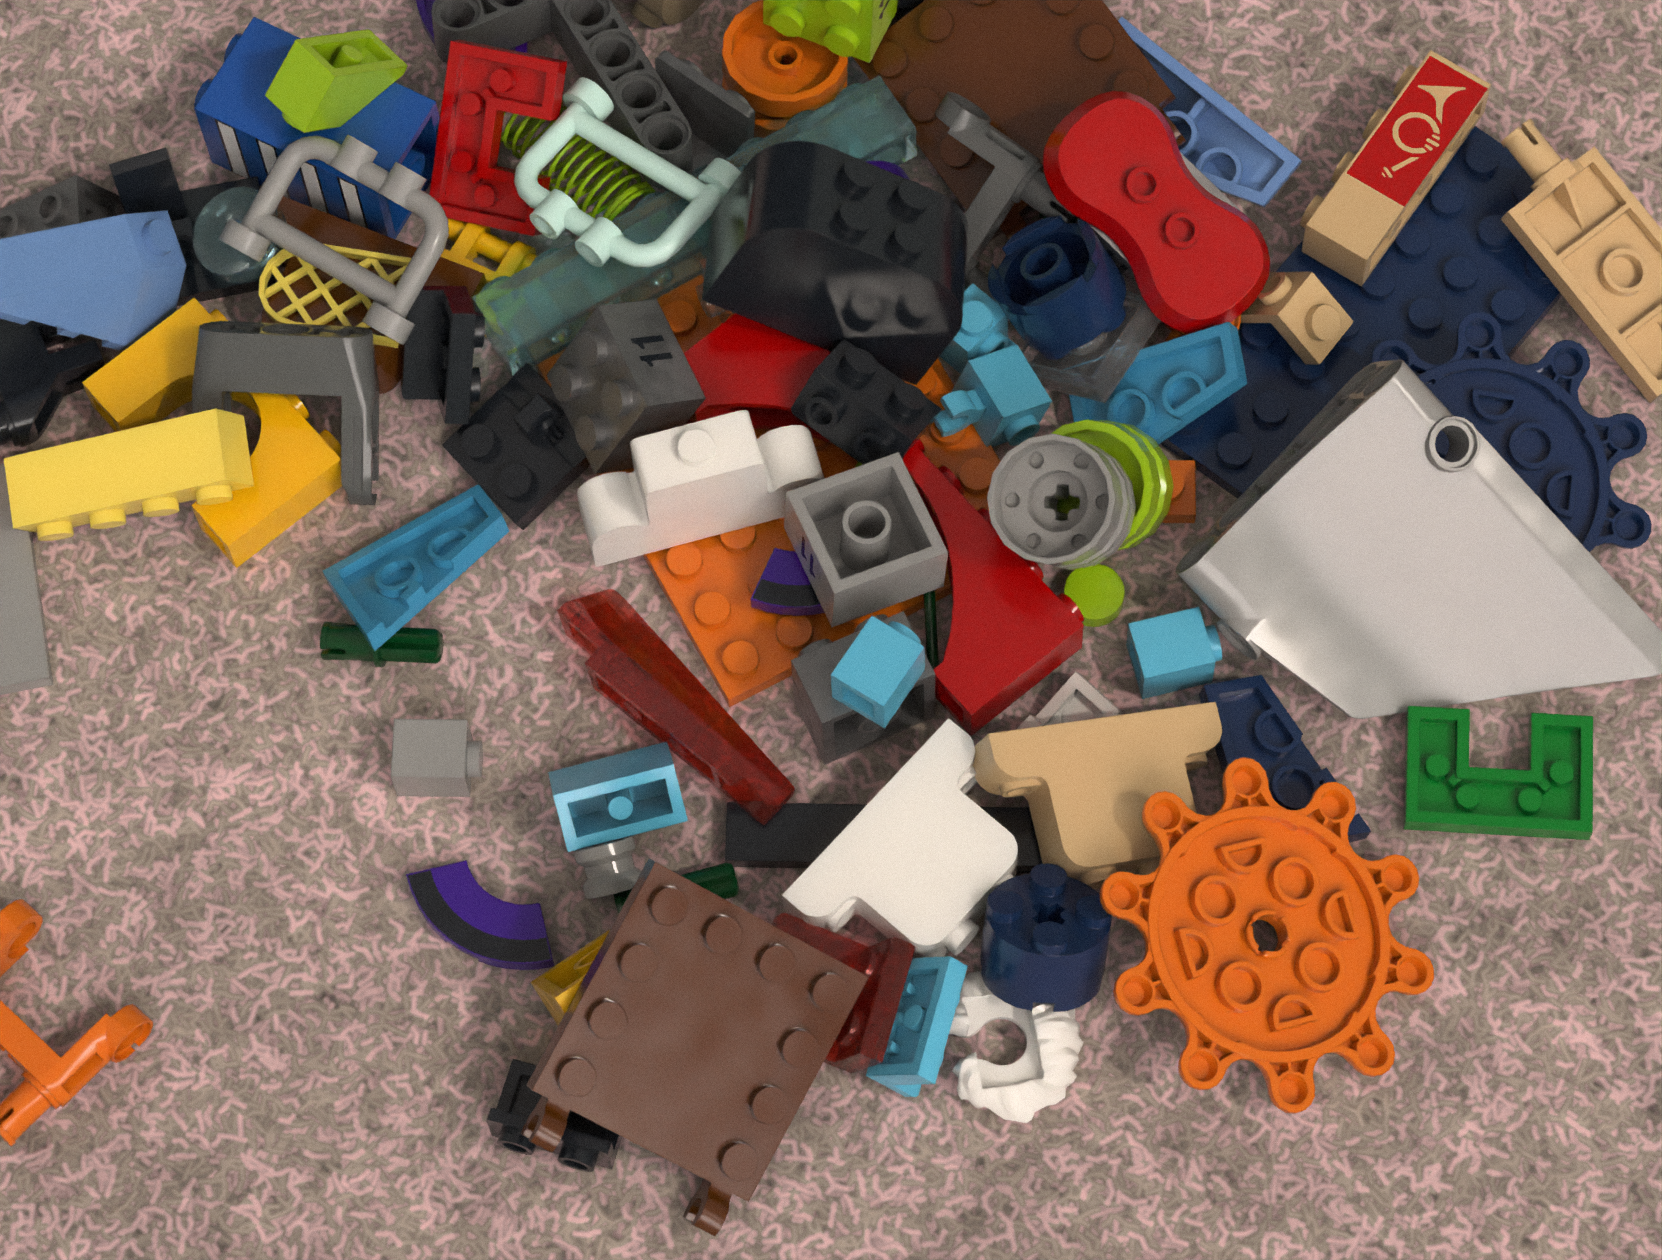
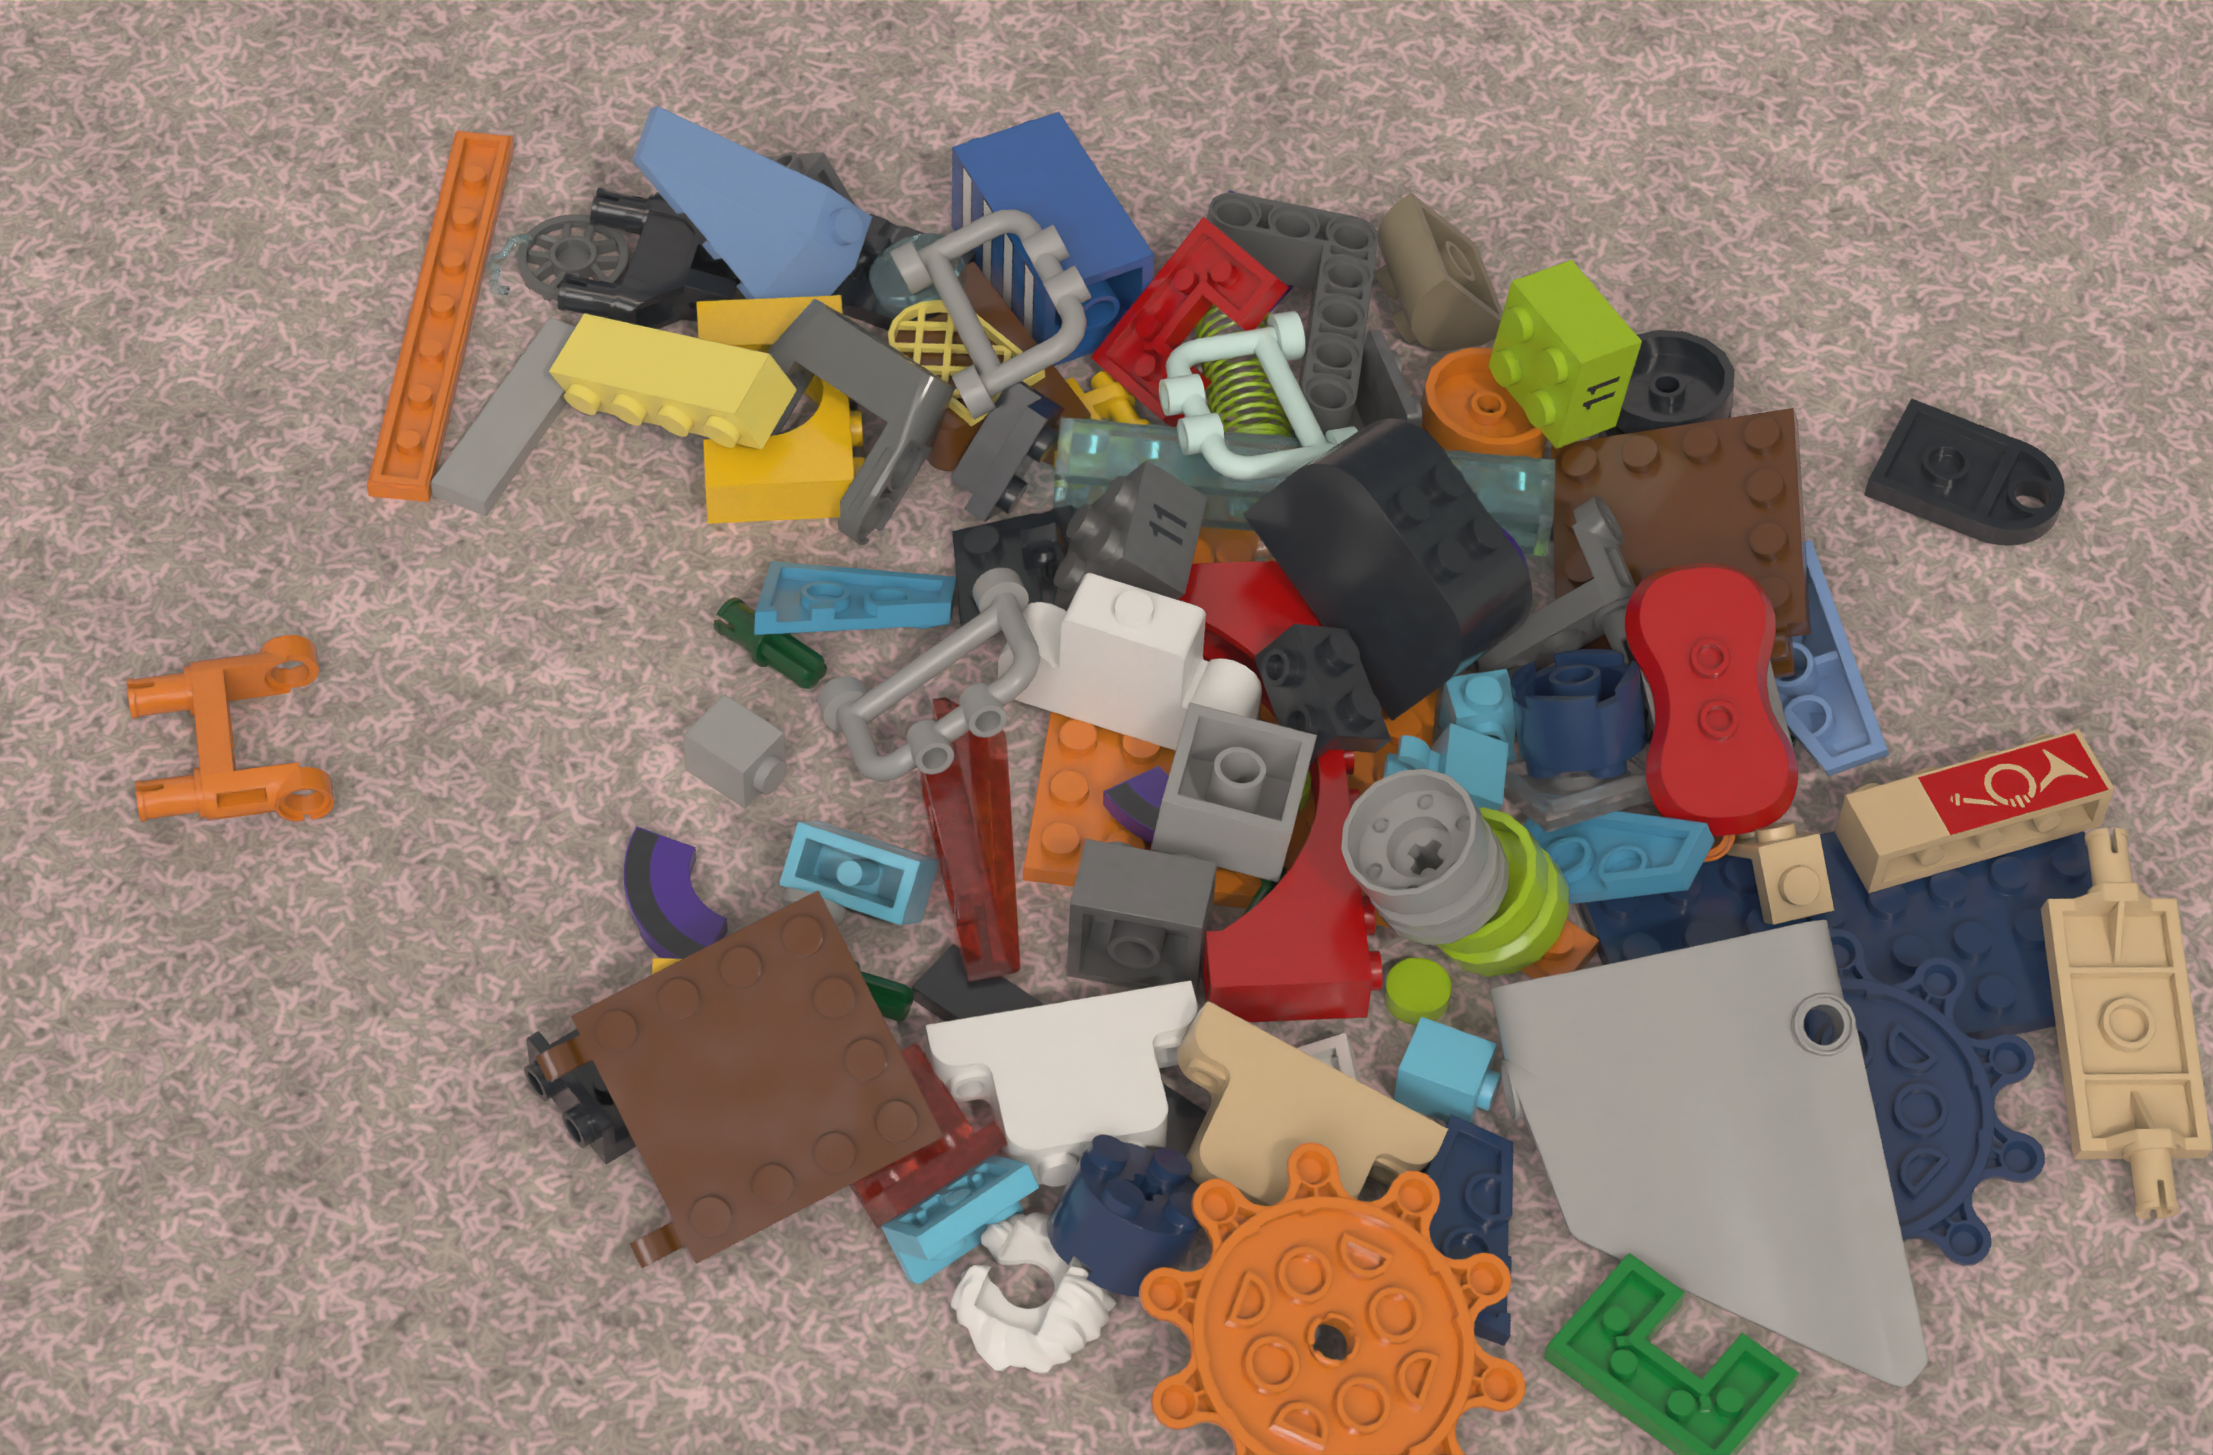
camera: 30 degrees right, 15 degrees down
(149, 184) = (881, 189): black slope -> none
(332, 78) = (1078, 180): lime slope -> none
(489, 657) = (850, 707): none -> light grey bar
(879, 670) = (1149, 883): medium azure brick -> none

